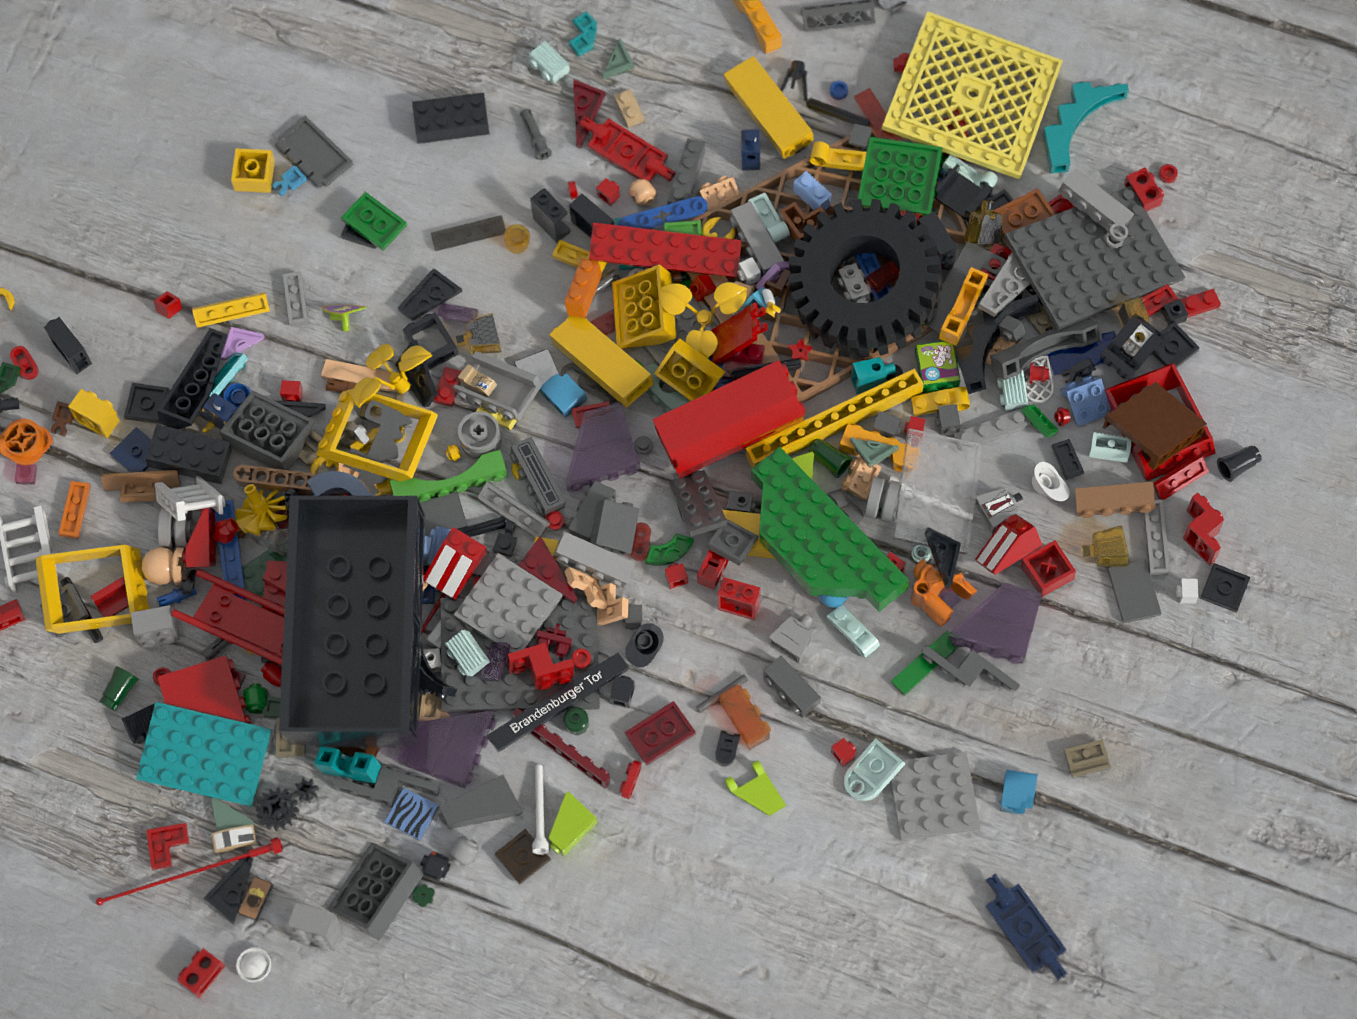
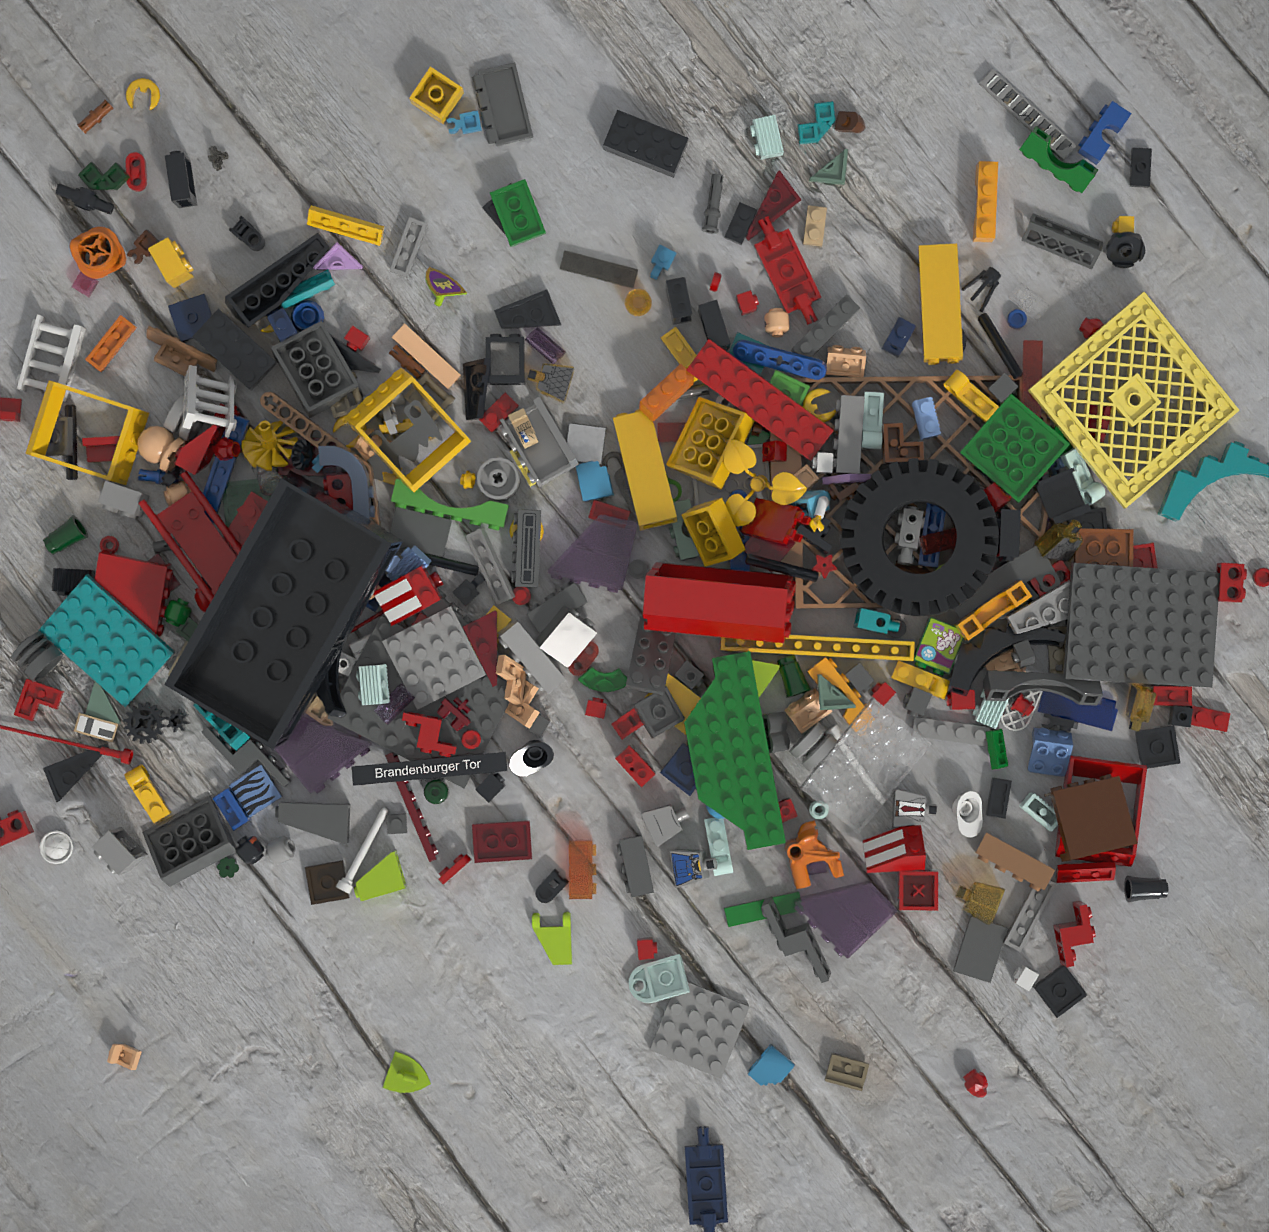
camera: 30 degrees right, 20 degrees up
(89, 315) = (217, 157): none -> clear smoke plant
(144, 402) = (225, 273): black tile -> none
(146, 359) = (245, 232): none -> black piece
(146, 801) = (34, 652): none -> dark grey wheel
(167, 305) = (291, 188): red plate -> none
(197, 597) = (175, 492): none -> light nougat head
(255, 898) = (87, 789): tile -> none
(313, 870) = (147, 794): none -> yellow plate
(369, 387) = (454, 349): yellow plant -> none
(398, 840) = (231, 809): none -> blue hinge
(517, 197) = (662, 260): none -> dark azure plate
(556, 771) = (397, 823): none -> dark grey plate
(566, 138) = (740, 223): none -> black plate
(609, 17) = (849, 122): none -> reddish brown plate
(693, 990) = (405, 1075): none -> lime shield
(714, 698) = (574, 835): dark grey bar -> none
(779, 329) = (814, 537): none -> black bracket
(782, 586) = (680, 771): none -> dark blue plate
(840, 658) = (690, 866): none -> torso
(945, 554) = (835, 829): black wing -> none
(984, 399) = (960, 702): none -> red brick
(1062, 416) = (1018, 756): red plate -> none
(1098, 205) = (1175, 582): light grey hinge -> none
(1120, 358) = (1104, 730): black brick -> none
(1204, 702) = (976, 1083): none -> red rock

